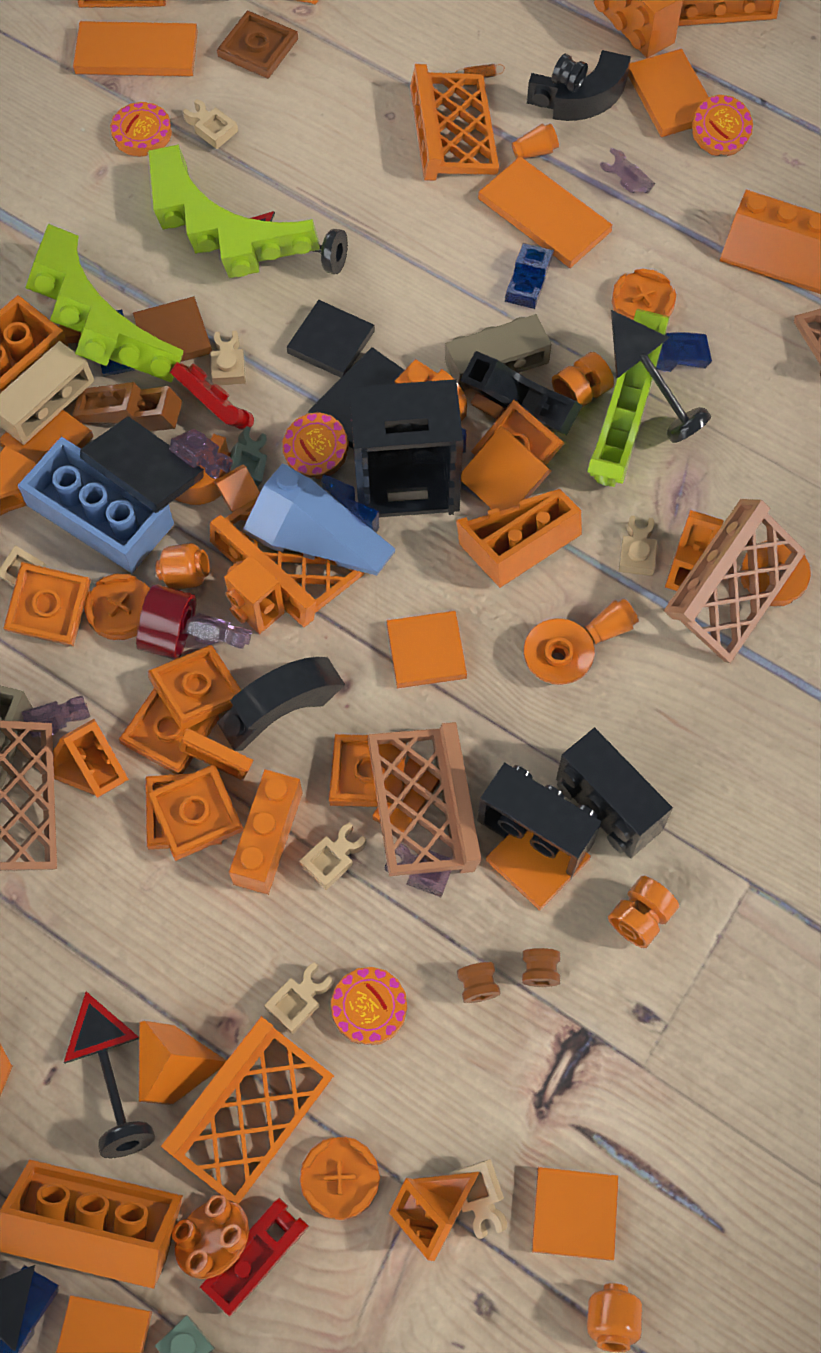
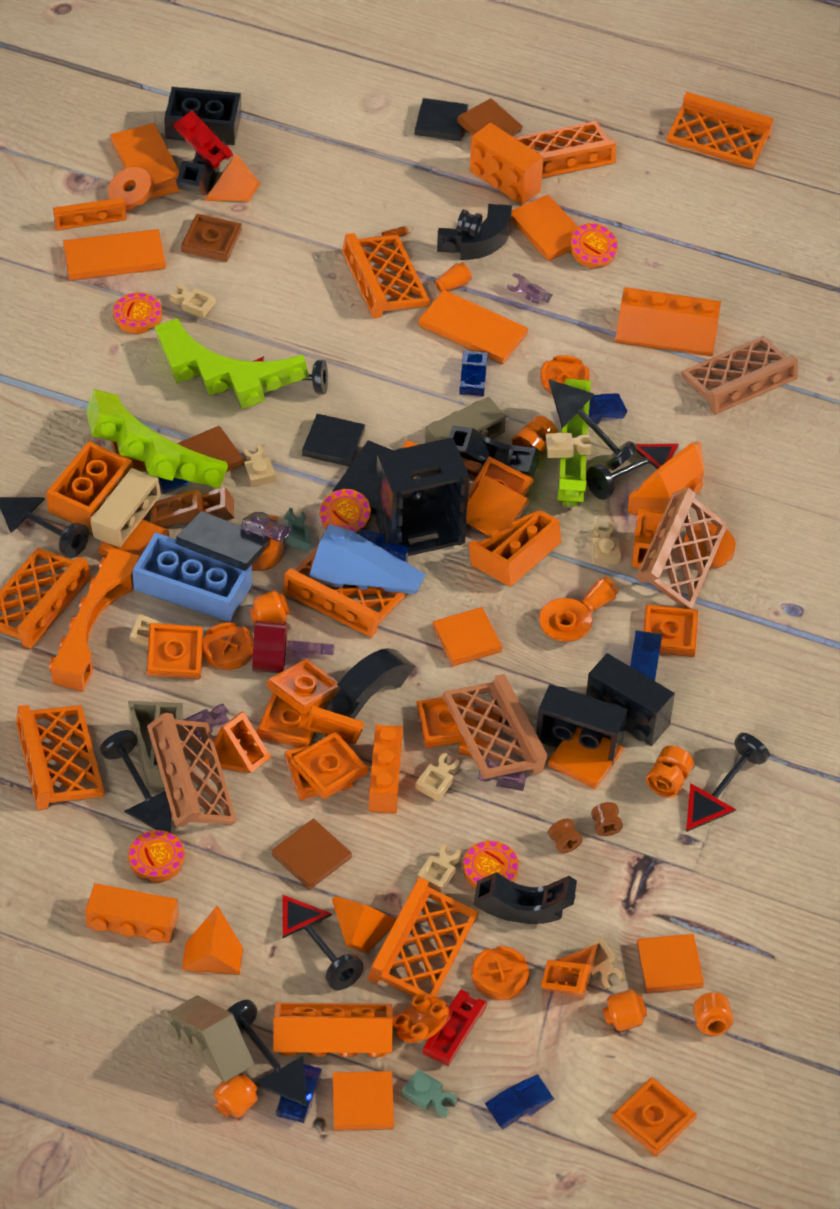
camera: 15 degrees left, 15 degrees down
(139, 938) = (311, 854): none -> dark orange tile
(212, 396) = (258, 491): red plate -> none
(237, 488) = (296, 549): orange tile -> none
(254, 594) = (332, 616): orange brick -> none
(397, 1078) = (522, 903): none -> black arch
(493, 1285) = (625, 1010): none -> orange head
(612, 403) = (563, 445): none -> tan plate
(650, 727) = (646, 653): none -> clear blue slope
(681, 973) = (705, 806): none -> black piece
(694, 689) = (676, 626): none -> orange tile
(734, 427) = (601, 480): none -> black piece
(746, 476) = (678, 473): none -> orange wedge

